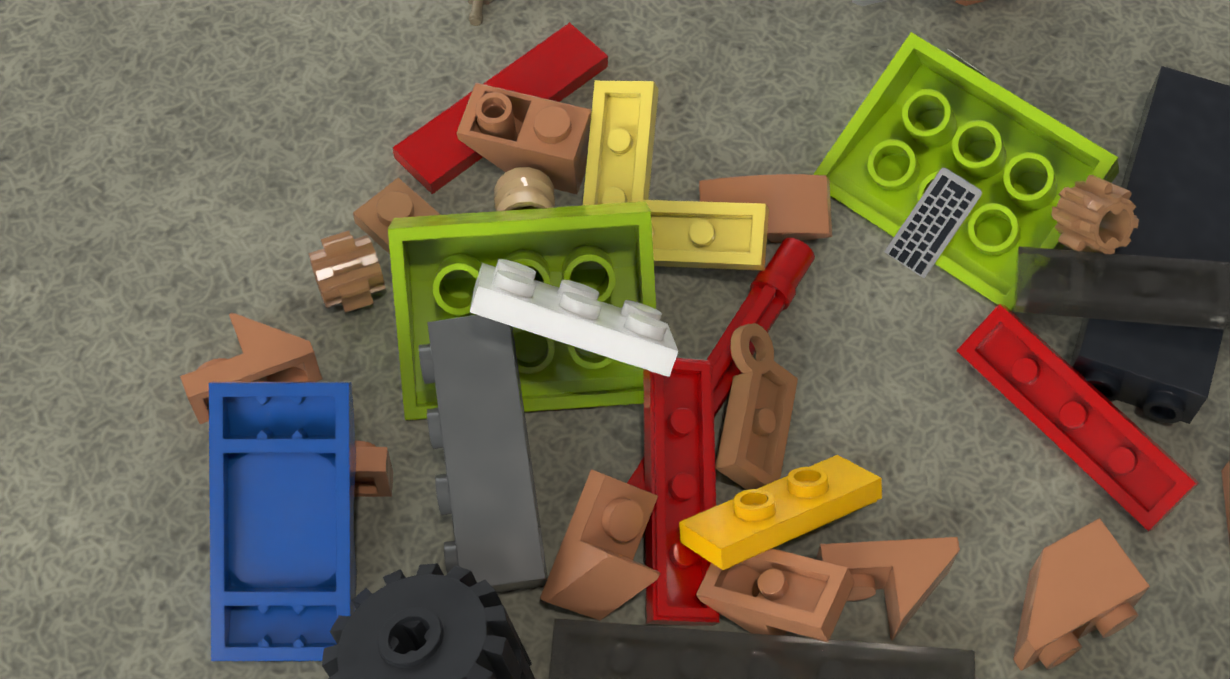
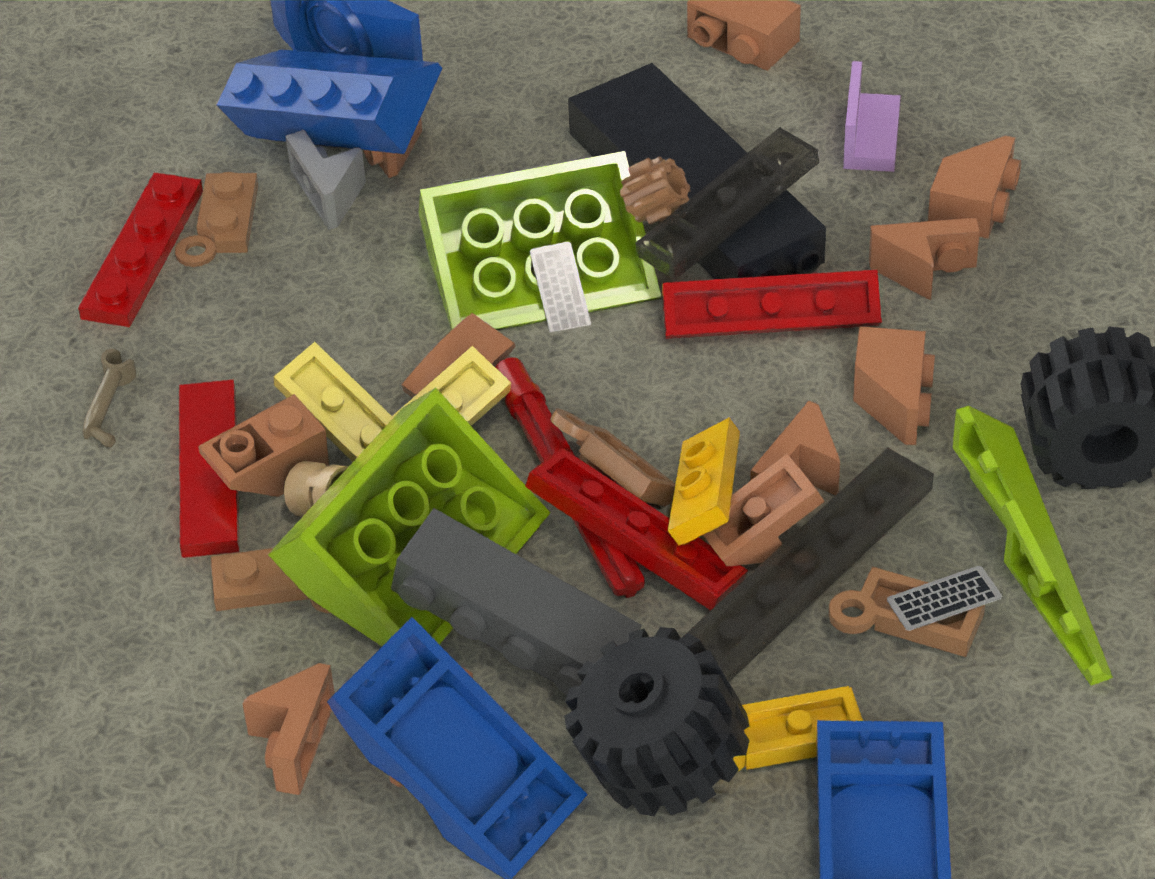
camera: 50 degrees left, 15 degrees down
(347, 271) = (268, 623): medium nougat gear -> none
(574, 316) = (475, 472): white plate -> none
(596, 561) = (648, 593): nougat slope -> none

